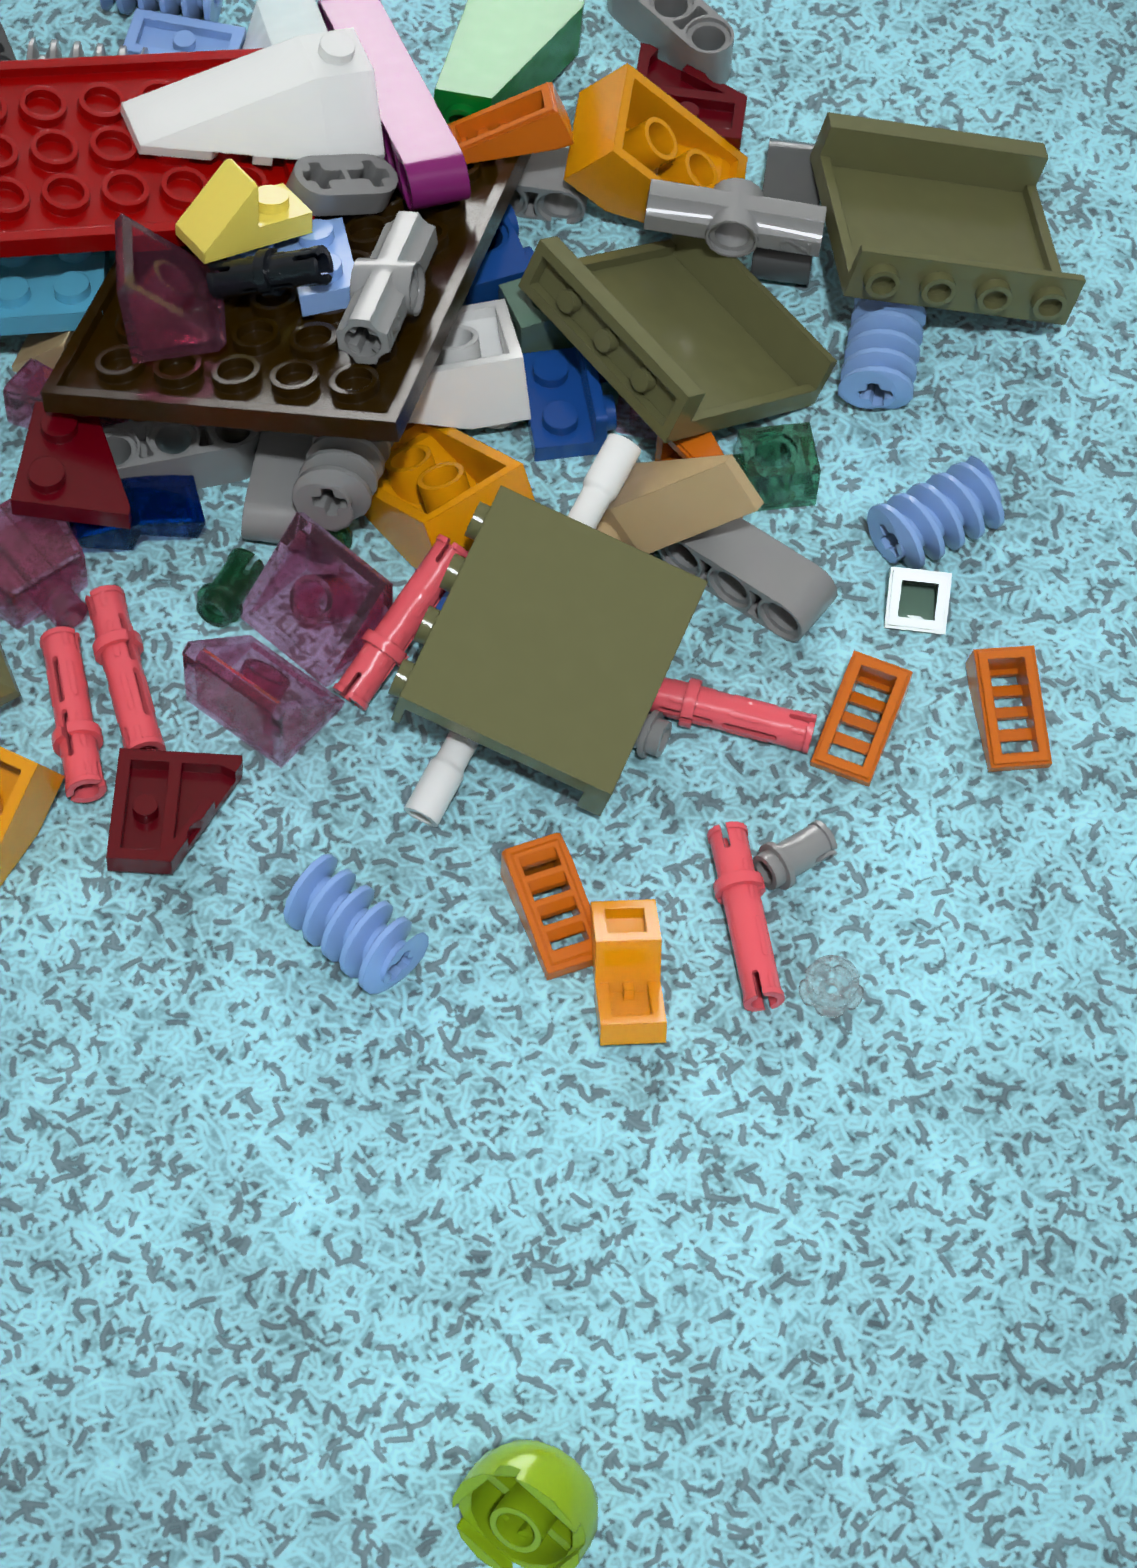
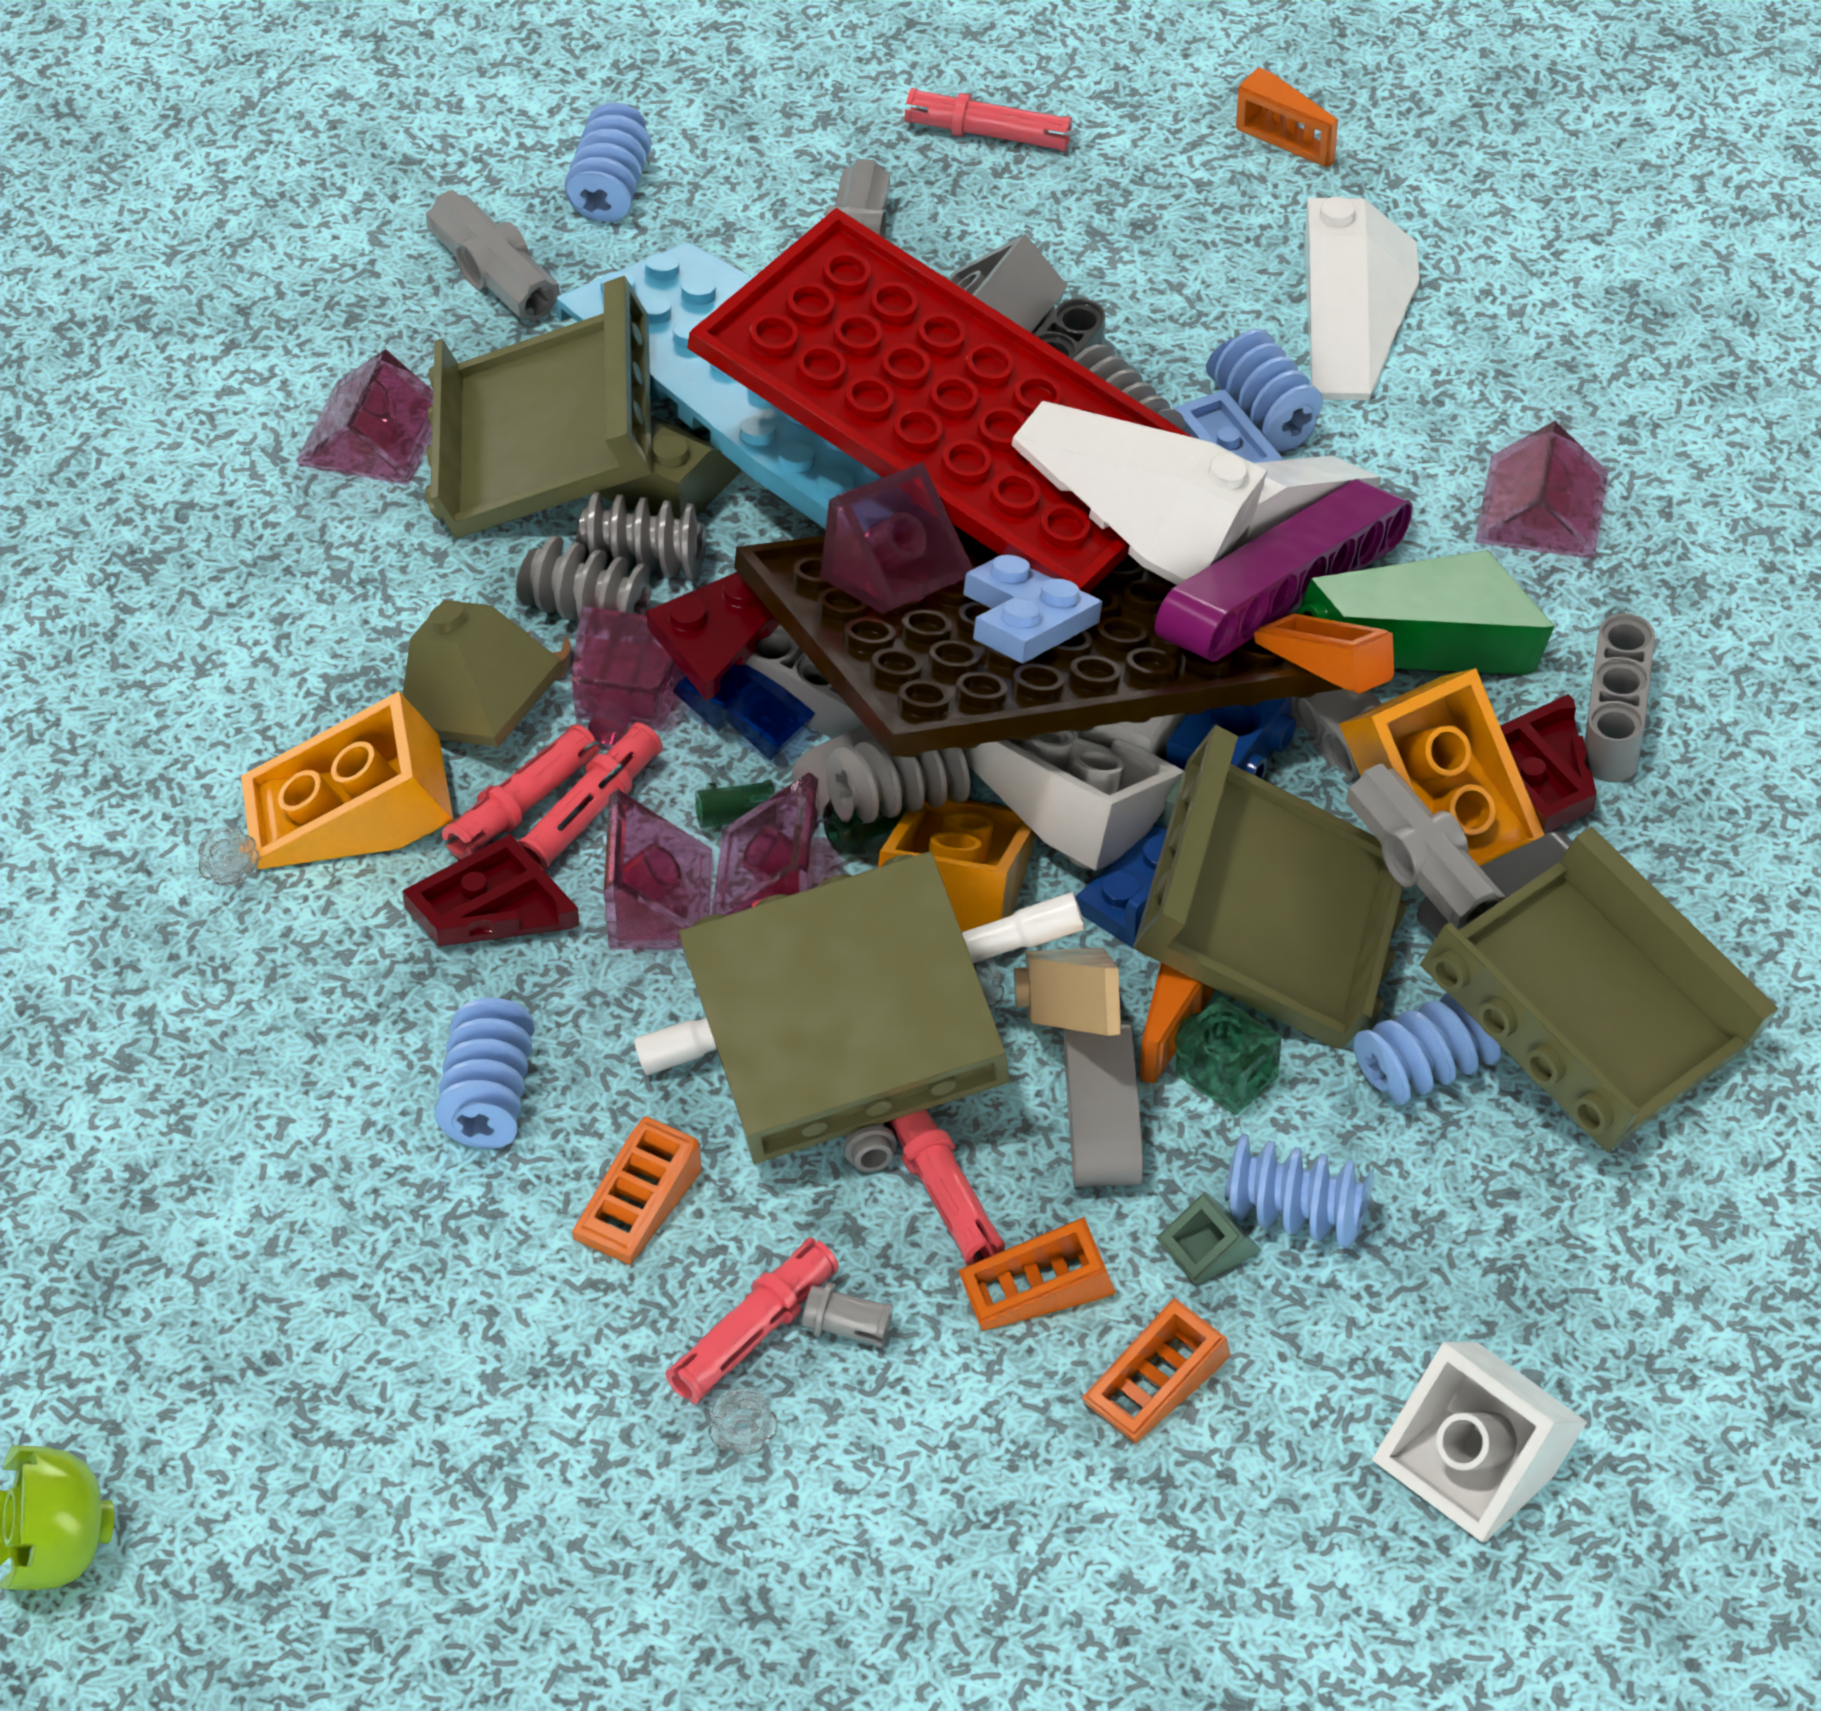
camera: 55 degrees right, 10 degrees down
(239, 216) = (997, 533): light yellow slope -> none
(270, 272) = (973, 582): black pin -> none
(343, 184) = (1130, 579): light grey beam -> none
(387, 287) = (1036, 655): light grey piece -> none
(627, 972) = (627, 1268): light orange slope -> none

